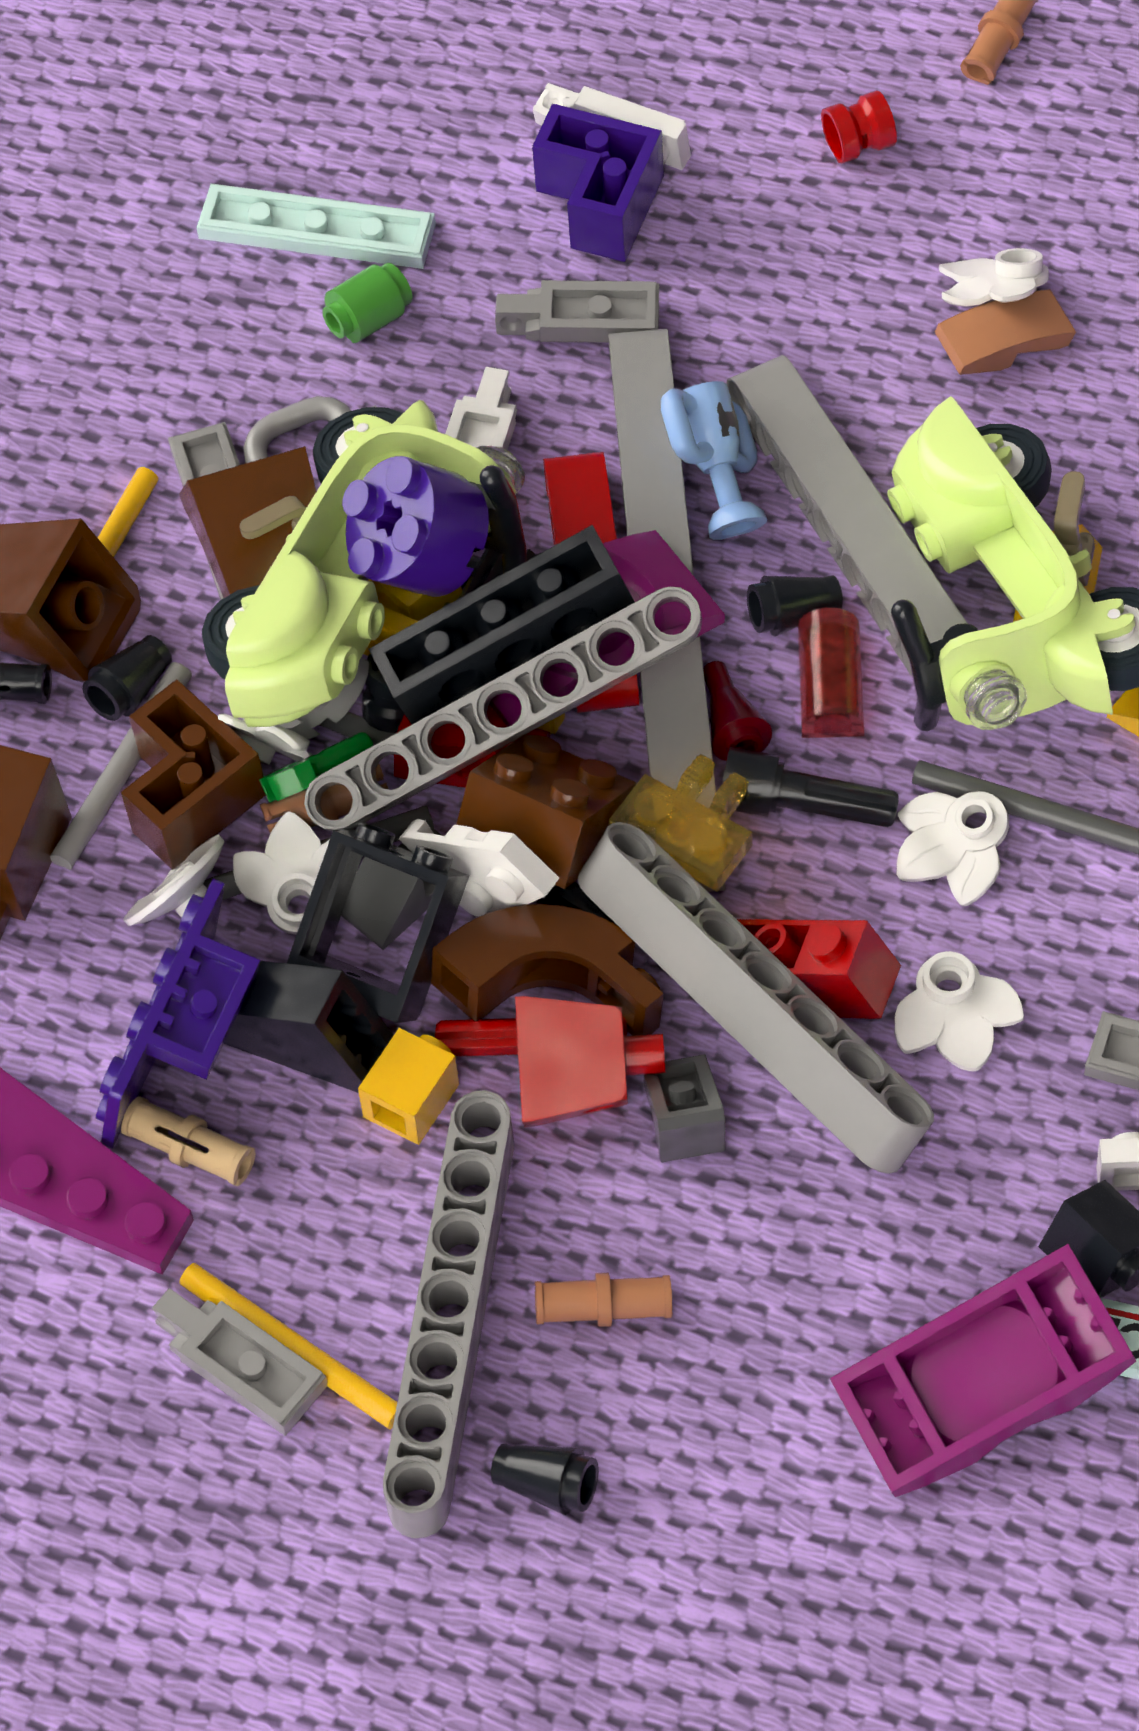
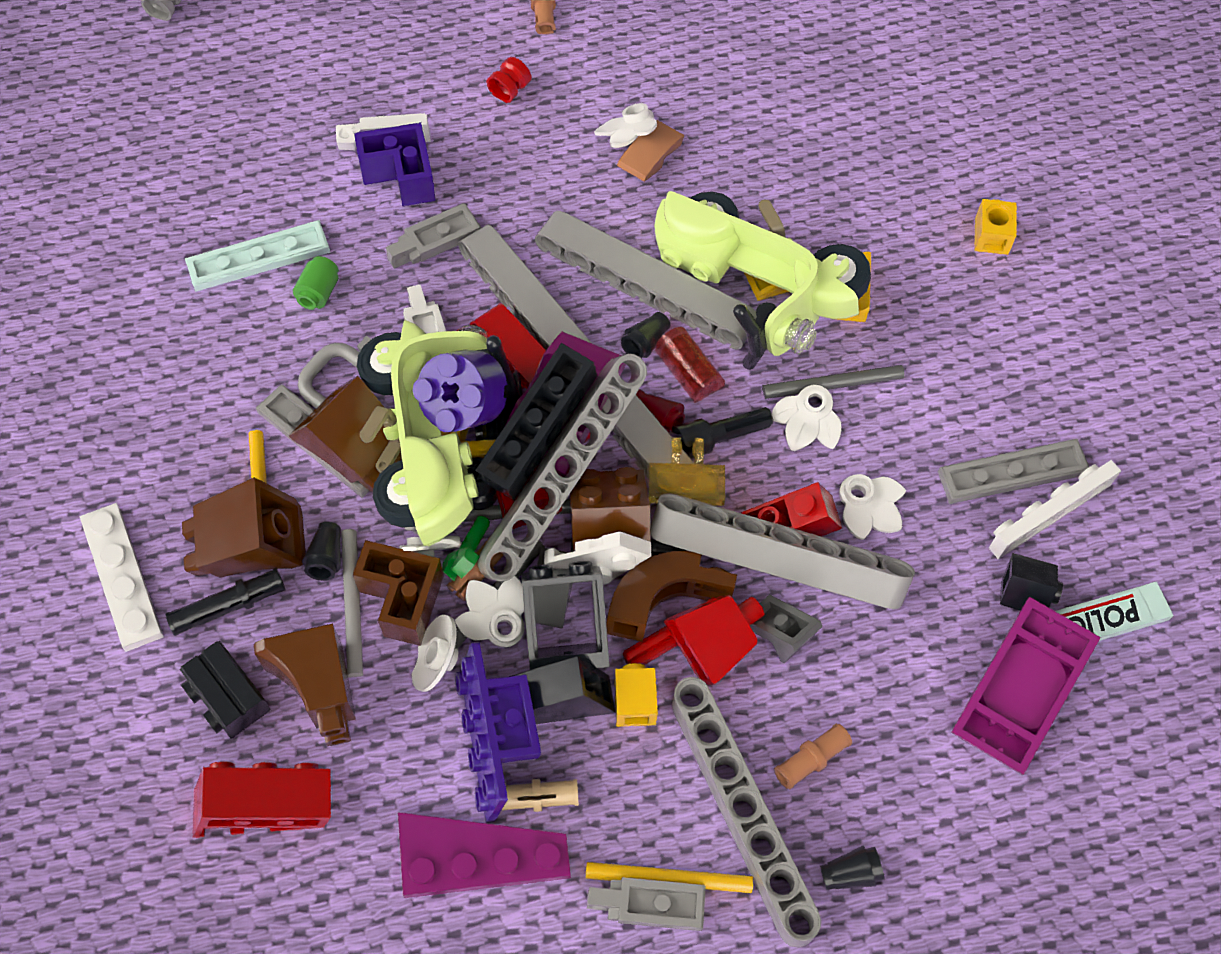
camera: 40 degrees left, 5 degrees up
(715, 436) = (554, 270): light blue piece -> none

